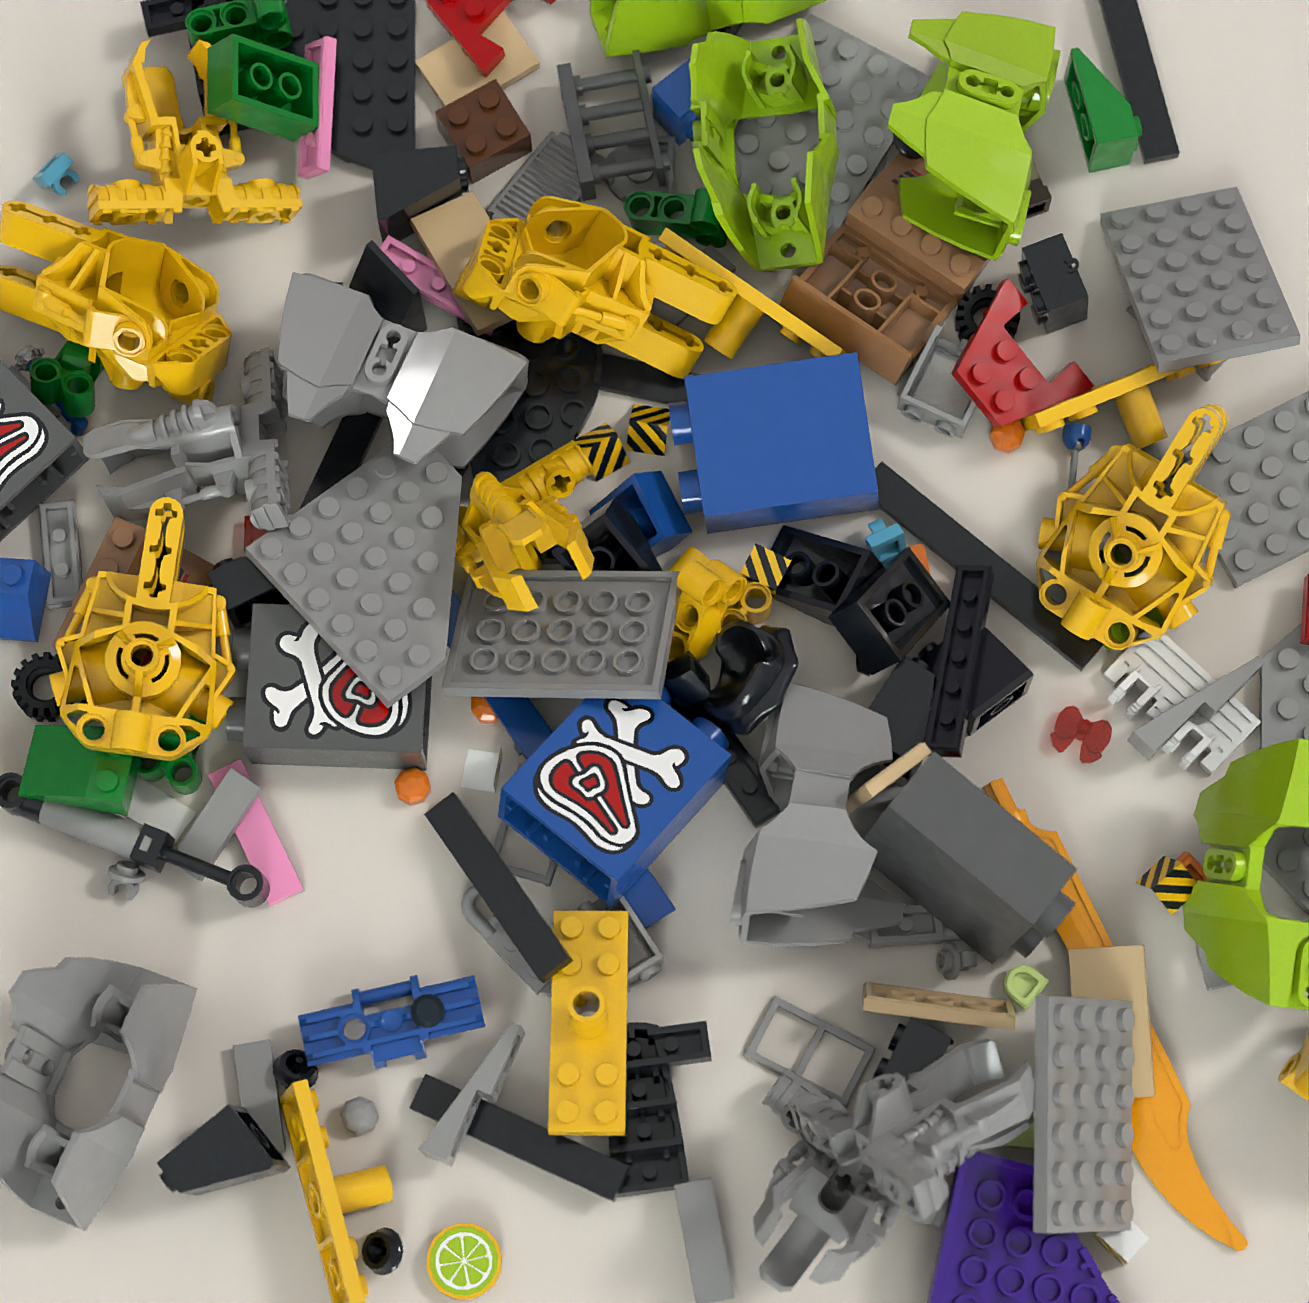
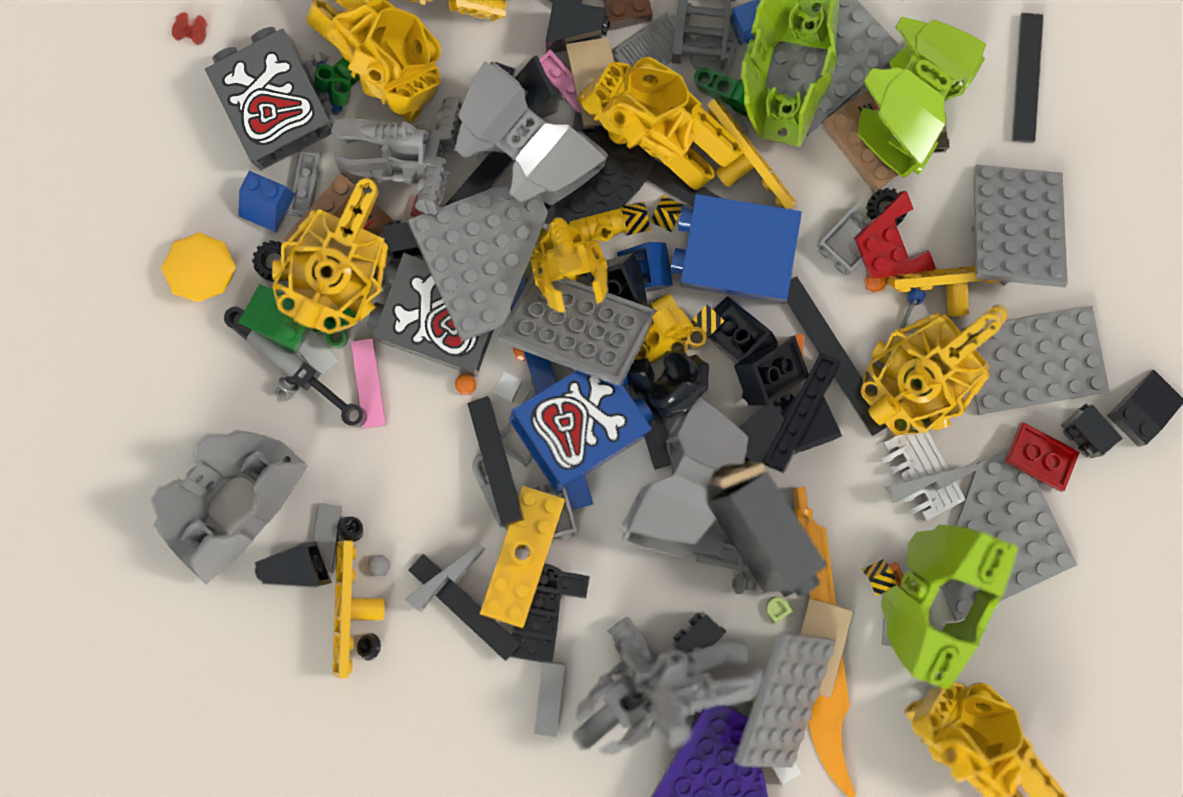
camera: 15 degrees right, 10 degrees up
(220, 818) = (350, 370): light grey tile -> none
(397, 1032) = (413, 526): blue piece -> none
(464, 1261) = (412, 666): lime tile -> none
(822, 1027) = (655, 596): light grey window -> none
(869, 303) = (820, 177): medium nougat piece -> none
(885, 541) = (783, 326): medium azure tile -> none
(938, 1006) = (724, 608): tan tile -> none
(1053, 283) = (932, 205): black brick -> none
(1071, 725) = (855, 467): clear red piece -> none
(1101, 115) = (996, 107): green slope -> none

